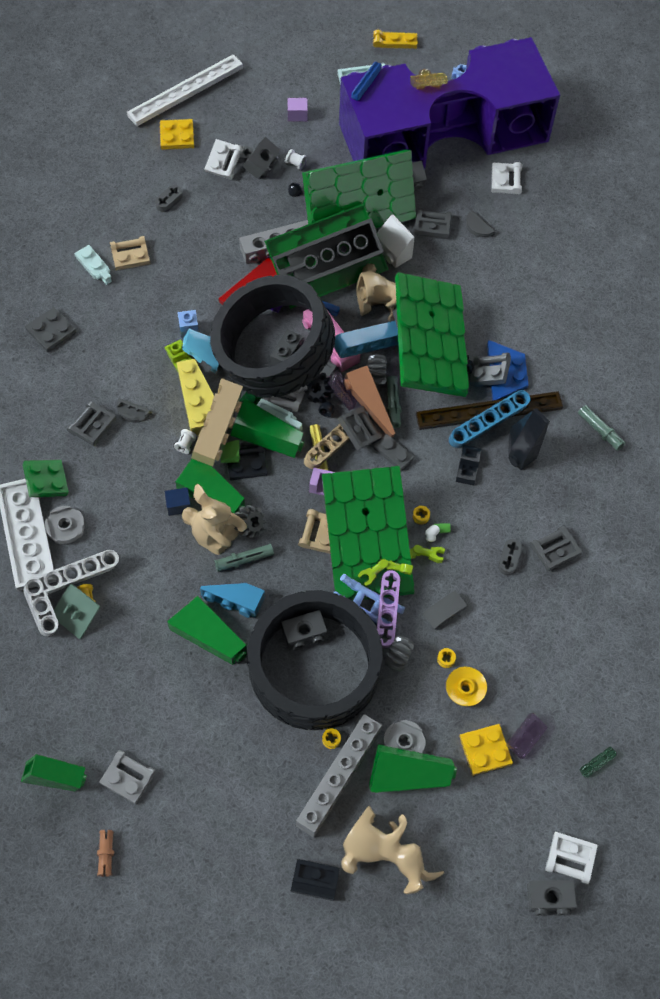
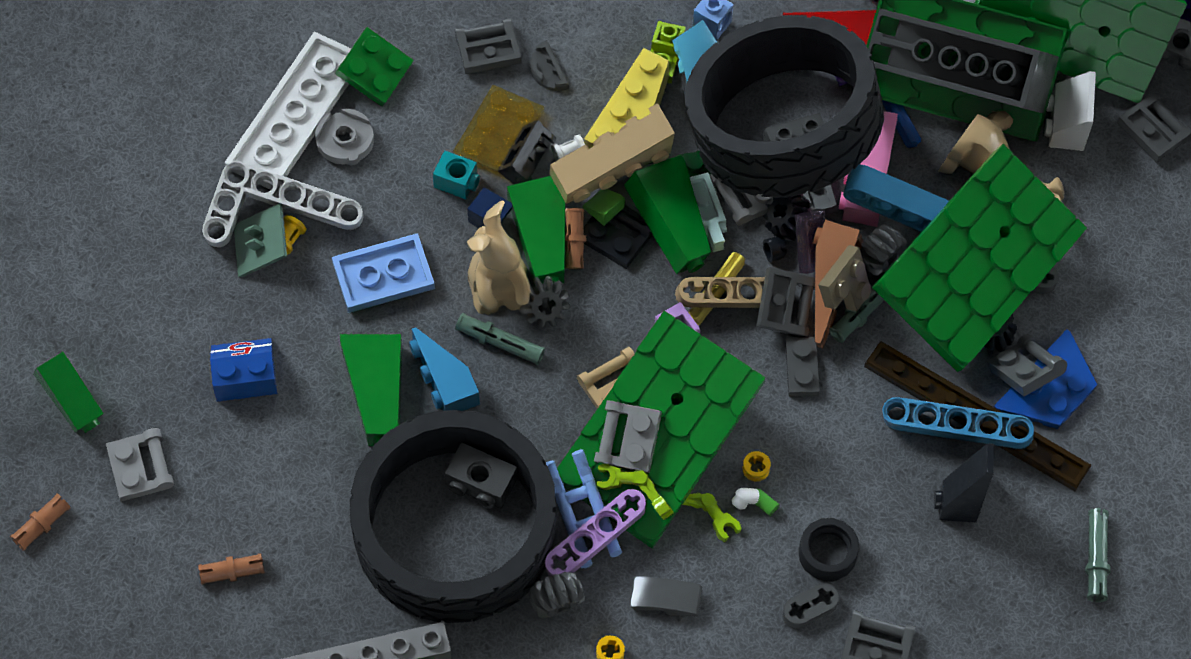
camera: 45 degrees right, 0 degrees up
(132, 681) = (243, 369): none -> blue slope
(139, 460) = (496, 128): none -> clear yellow plate
(142, 490) = (451, 165): none -> teal brick
(153, 574) = (383, 273): none -> light blue plate
(164, 459) = (526, 152): none -> black hinge
(229, 785) = (231, 569): none -> nougat pin
(231, 478) = (574, 238): none -> nougat pin
(335, 733) = (385, 610): yellow bush -> none
(365, 546) = (638, 437): none -> light grey plate
(384, 395) = (846, 281): none -> dark tan plate
(468, 465) = (877, 458): black slope -> none
(492, 510) = (837, 528): none -> black tyre

